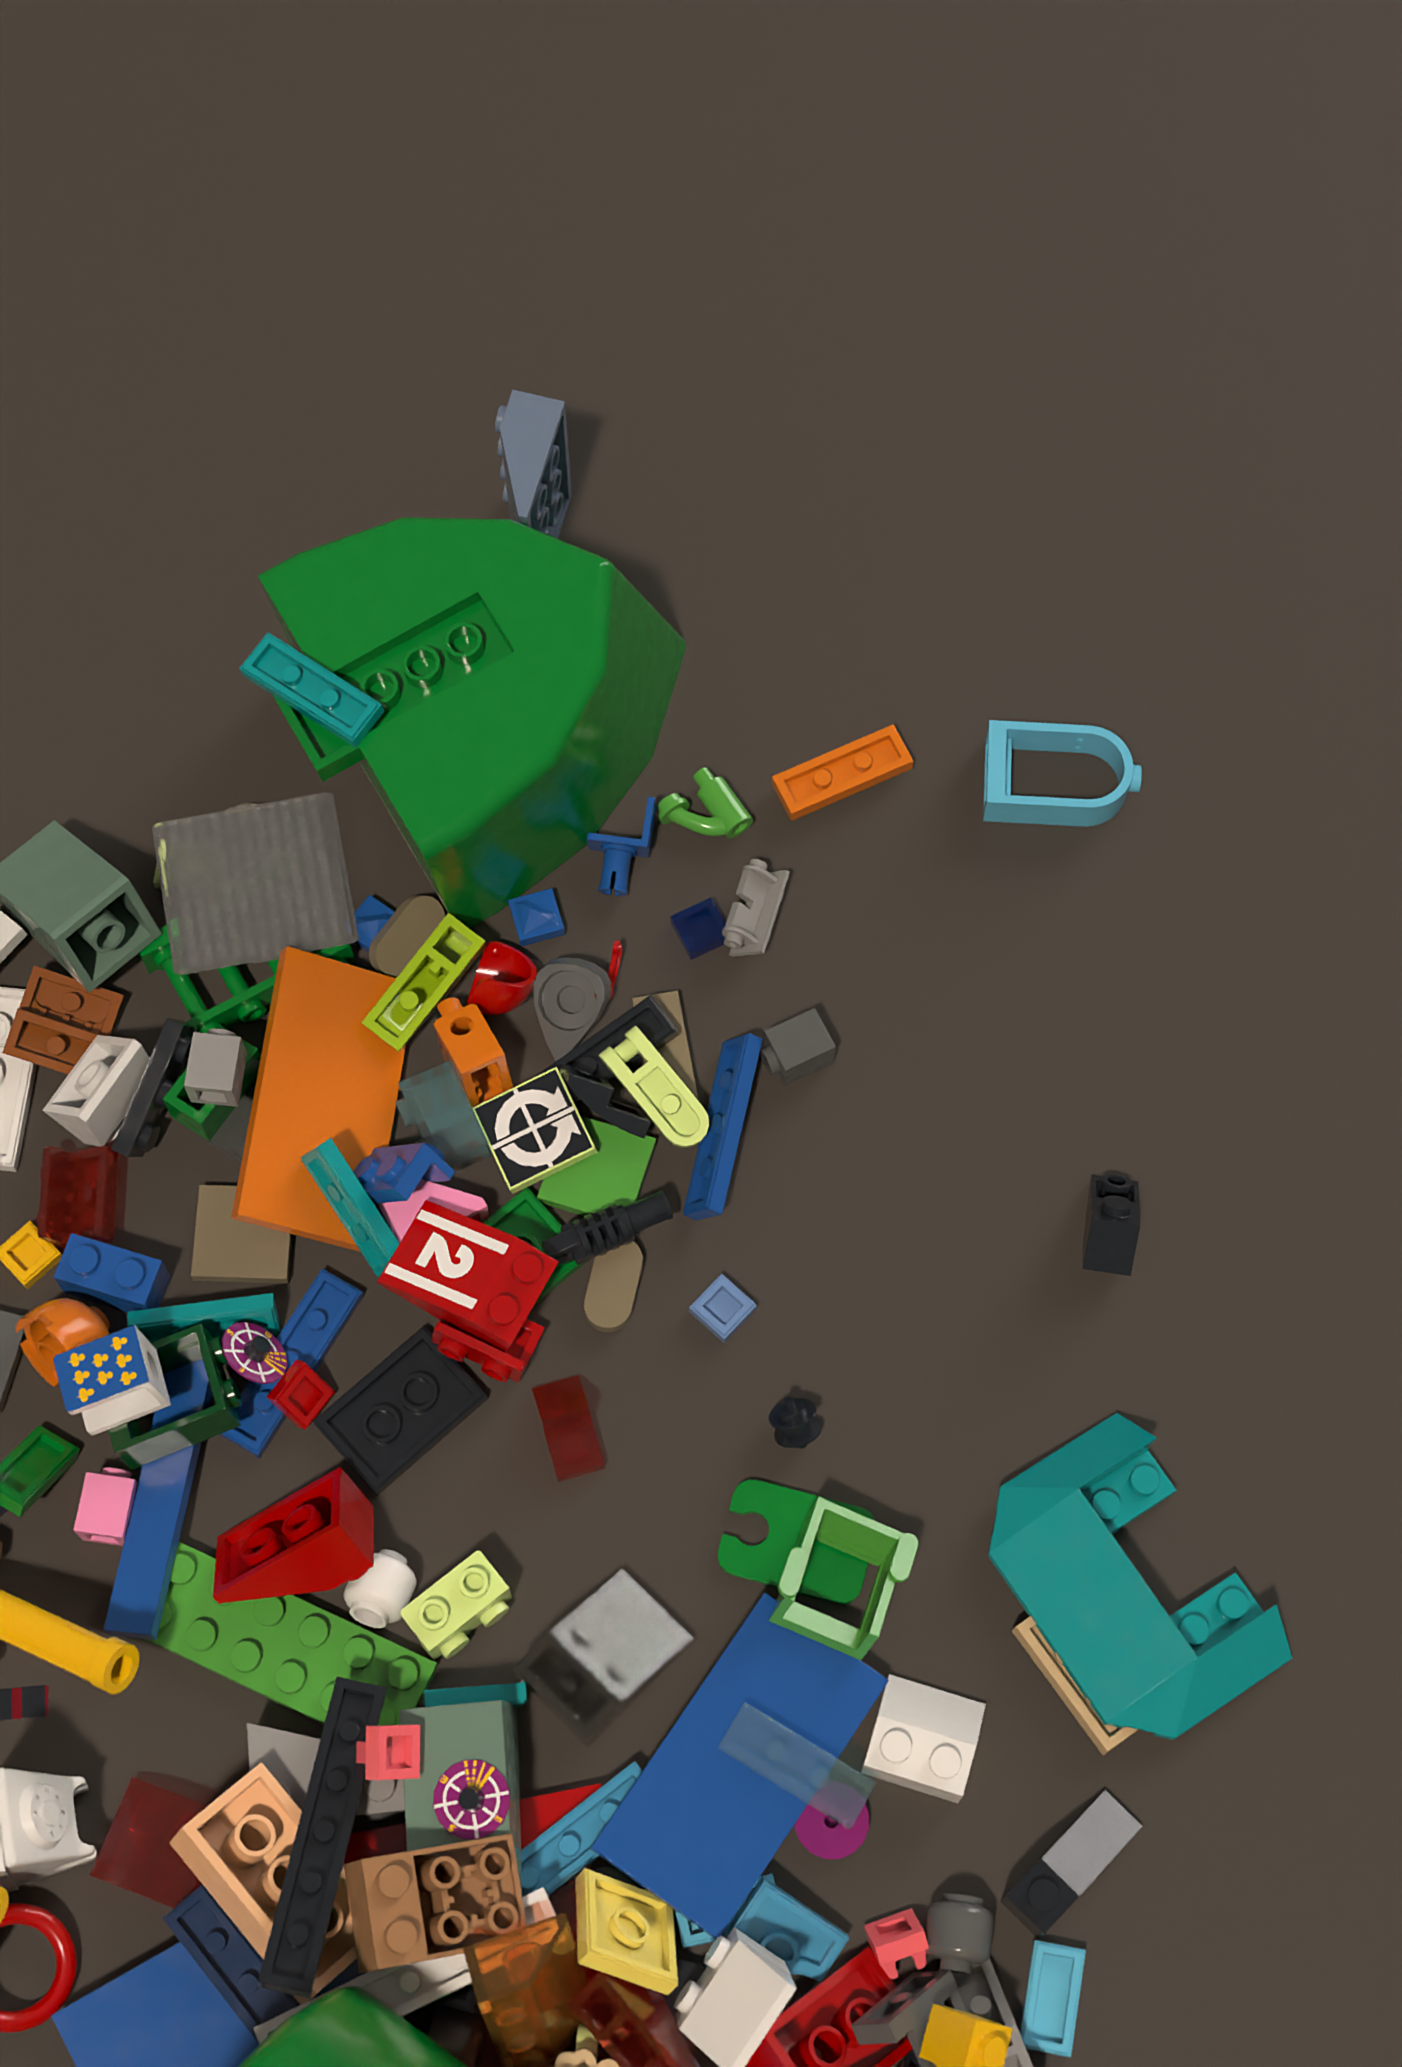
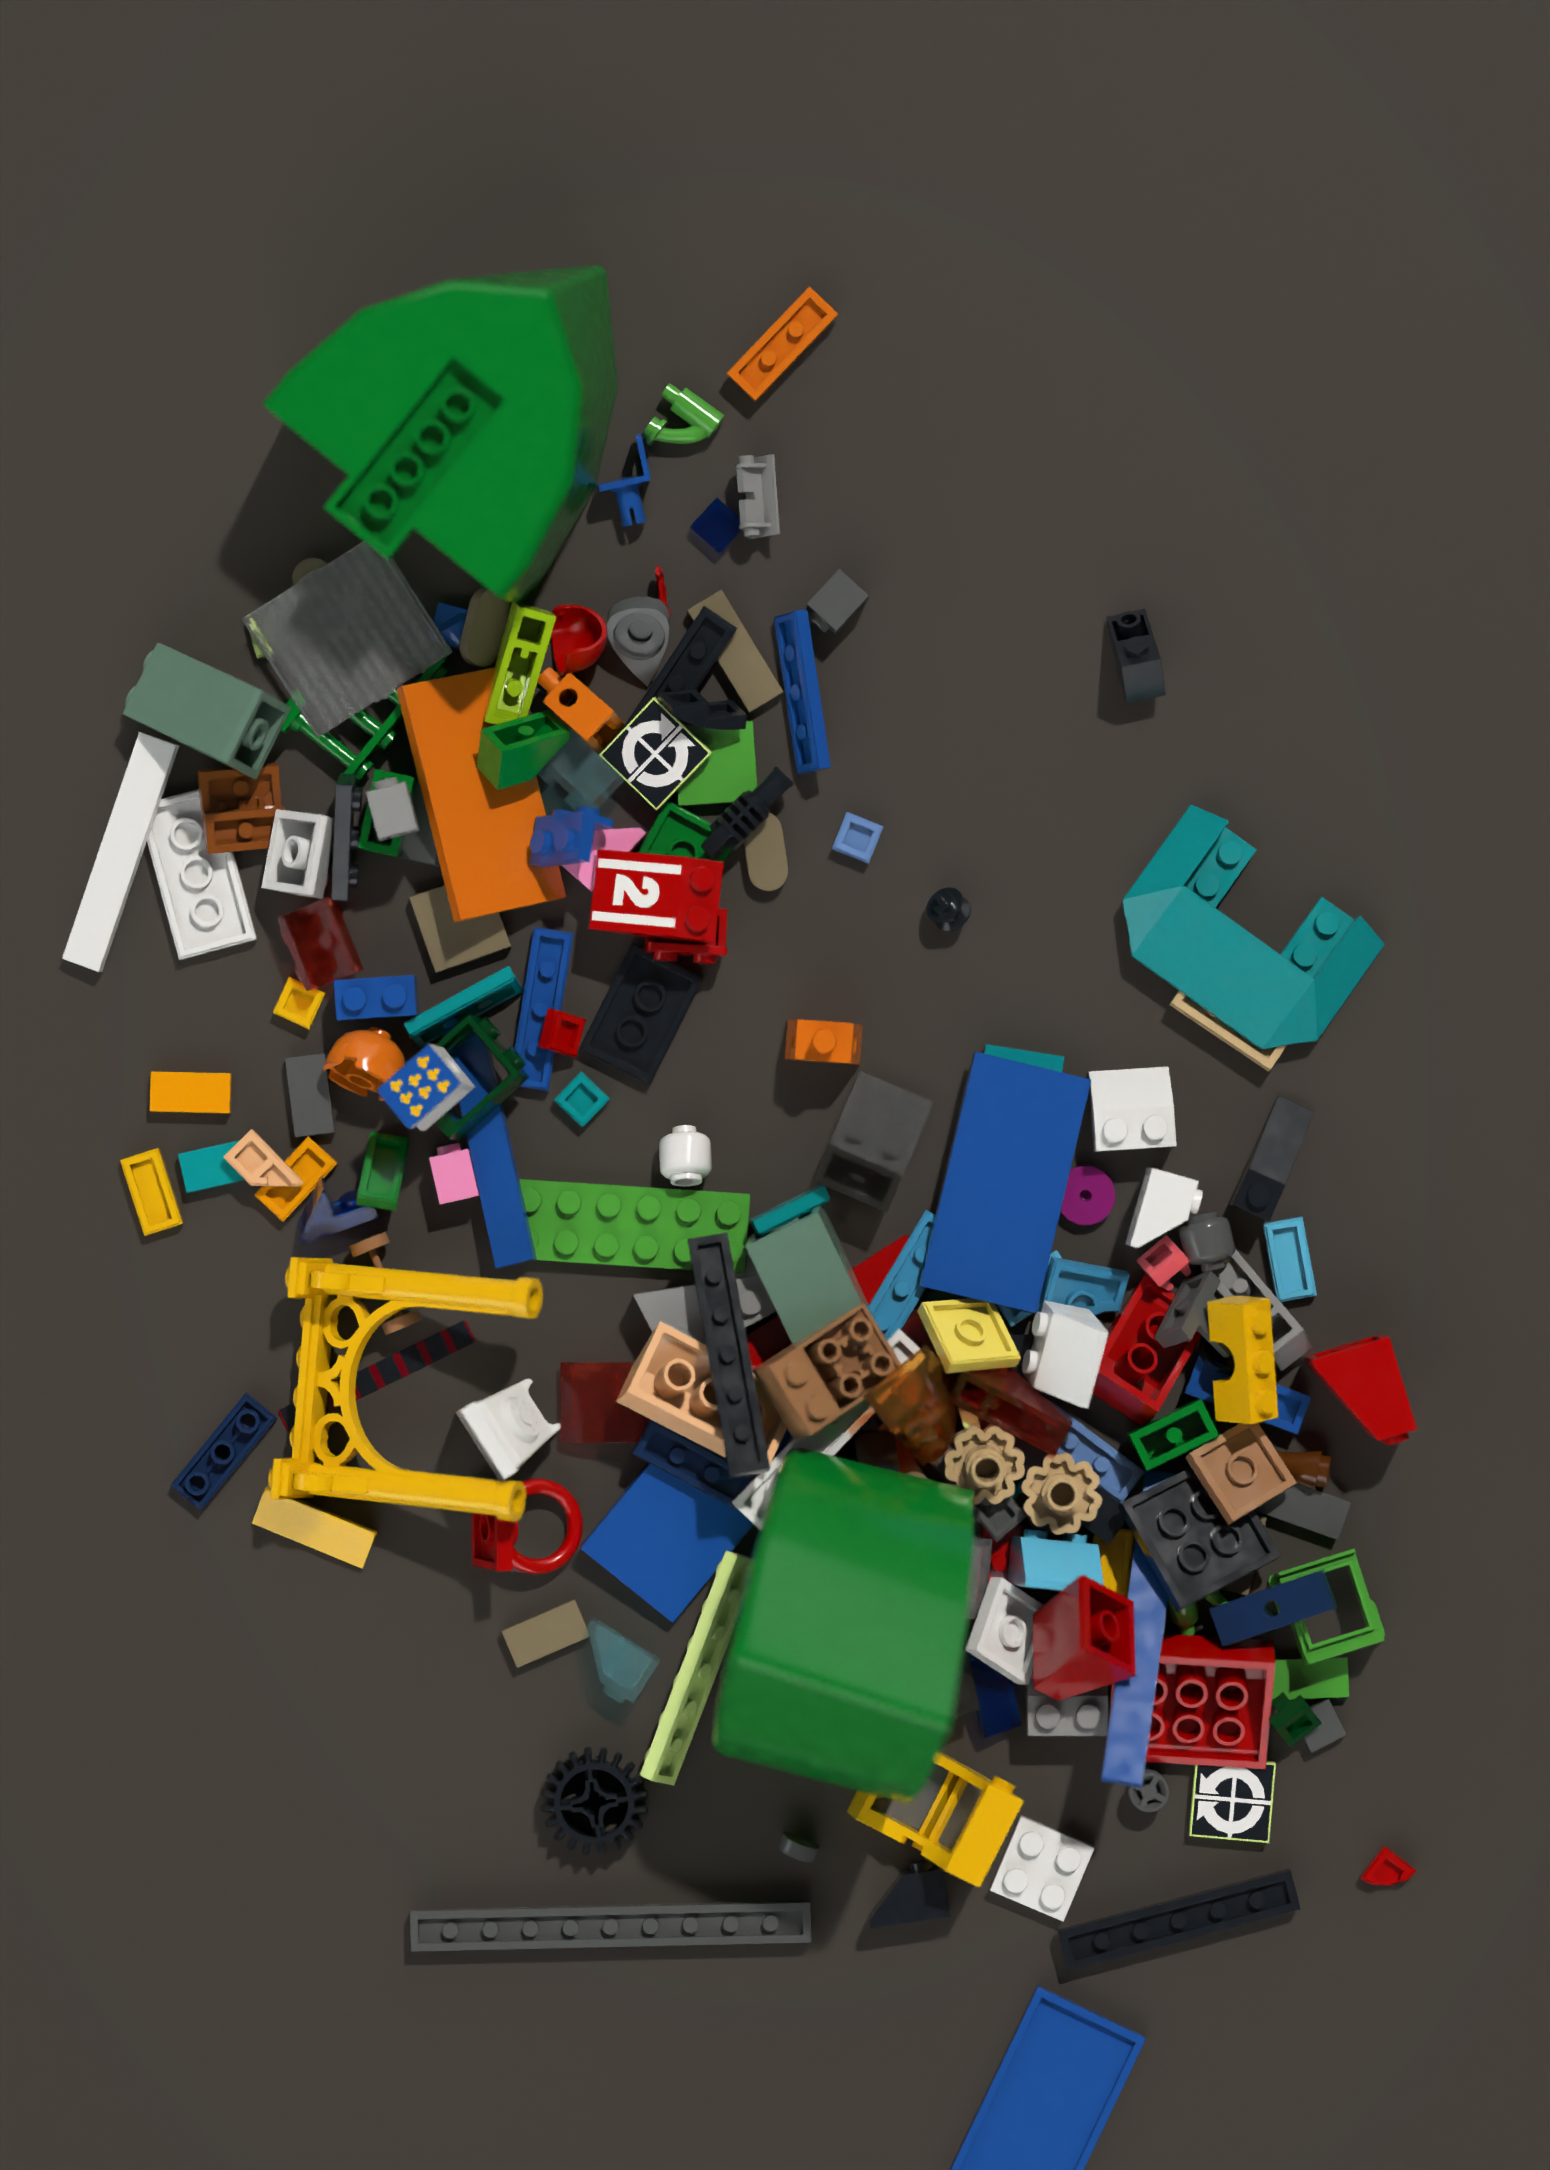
camera: 20 degrees left, 20 degrees up
(254, 1352) = (515, 1017): magenta piece -> none
(288, 1474) = (581, 1099): none -> teal tile
(298, 1544) = (611, 1150): red slope -> none
(311, 690) = (354, 493): teal tile -> none
(351, 1204) = (541, 873): teal tile -> none
(385, 1061) = (520, 748): none -> green slope
(390, 1752) = (753, 1281): coral tile -> none
(457, 1605) = (748, 1146): yellowish green bracket -> none
(471, 1799) = (824, 1289): magenta piece -> none
(535, 460) = (426, 182): sand blue slope -> none
(536, 917) = (581, 568): blue tile -> none
(568, 1428) = (775, 977): clear red slope -> none
(595, 1517) = (823, 1041): none -> orange torso
(658, 1090) = (741, 685): yellowish green plate -> none
(797, 1765) = (1047, 1169): clear light blue tile -> none
(829, 1572) = (994, 997): green piece -> none
(863, 1539) = (1054, 981): bright green piece -> none
(921, 1863) = (1162, 1205): none -> white slope
(1089, 739) = (911, 294): medium azure window -> none

